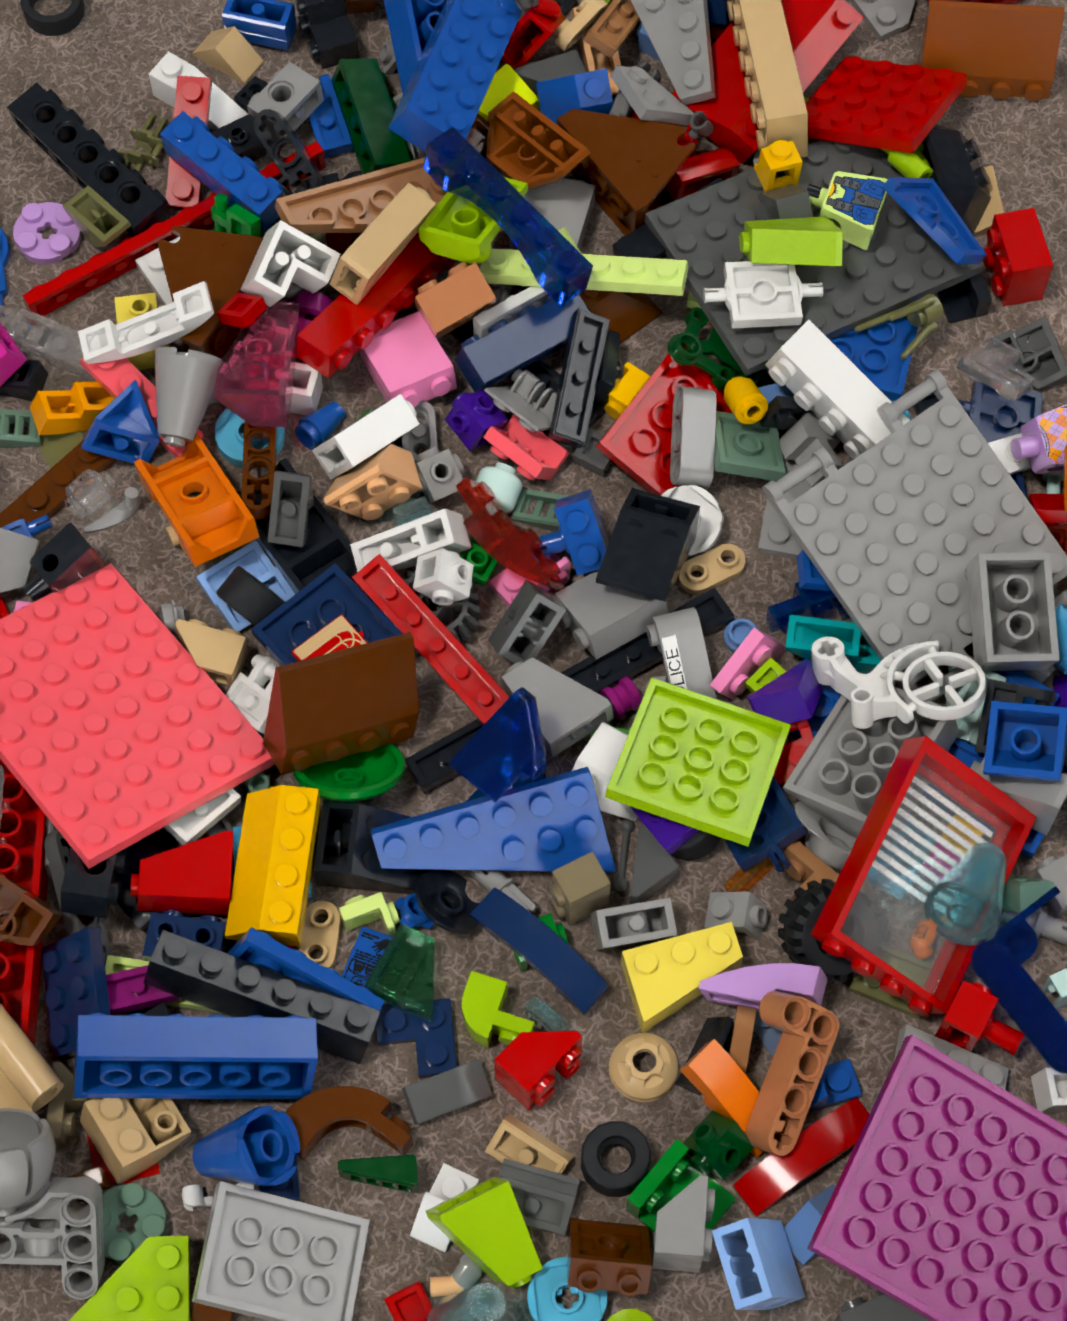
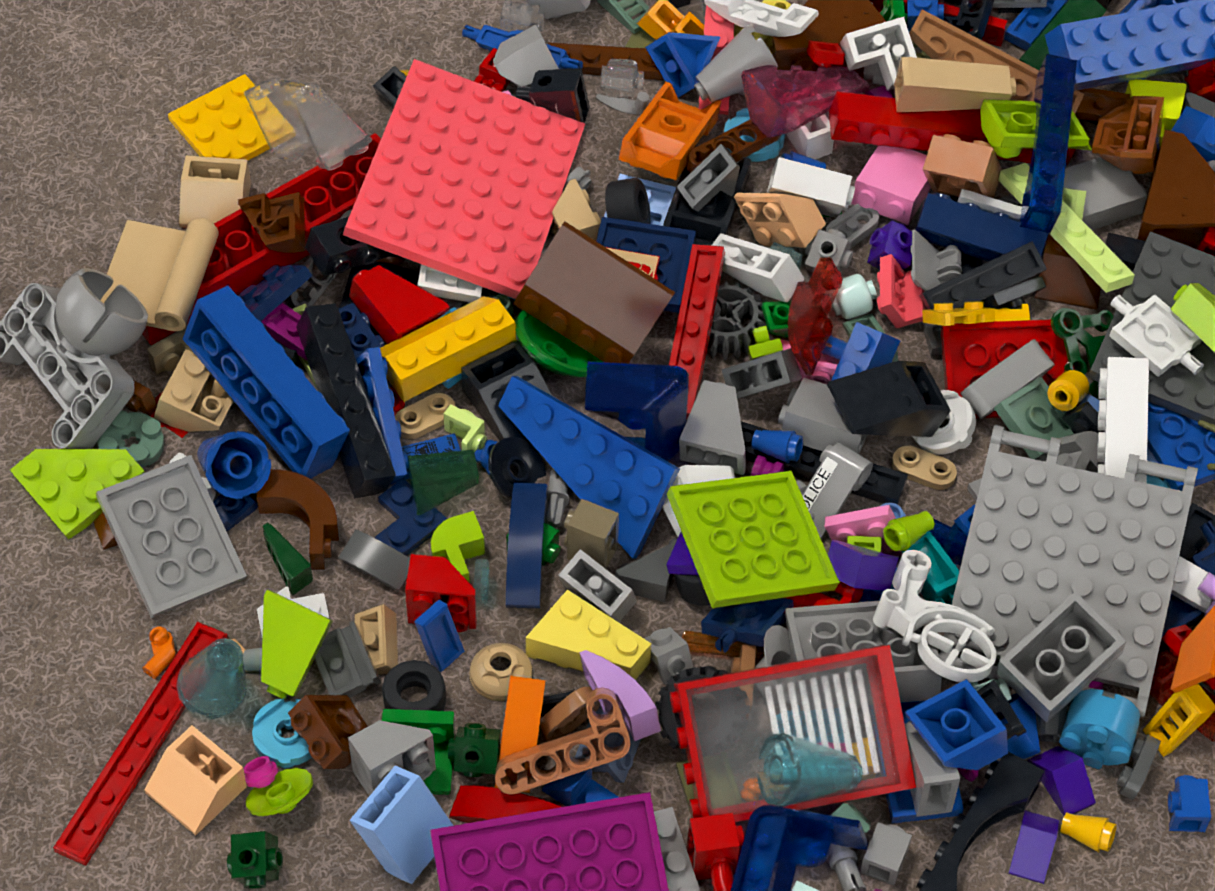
camera: 50 degrees right, 10 degrees down
(443, 577) = (745, 296): white brick -> none
(497, 599) = (763, 345): none -> lime tile
(581, 1094) = (439, 635): none -> blue tile
(603, 425) = (946, 315): none -> yellow wing
(608, 666) = (778, 444): none -> blue cone
(786, 633) = (907, 530): none -> lime cone

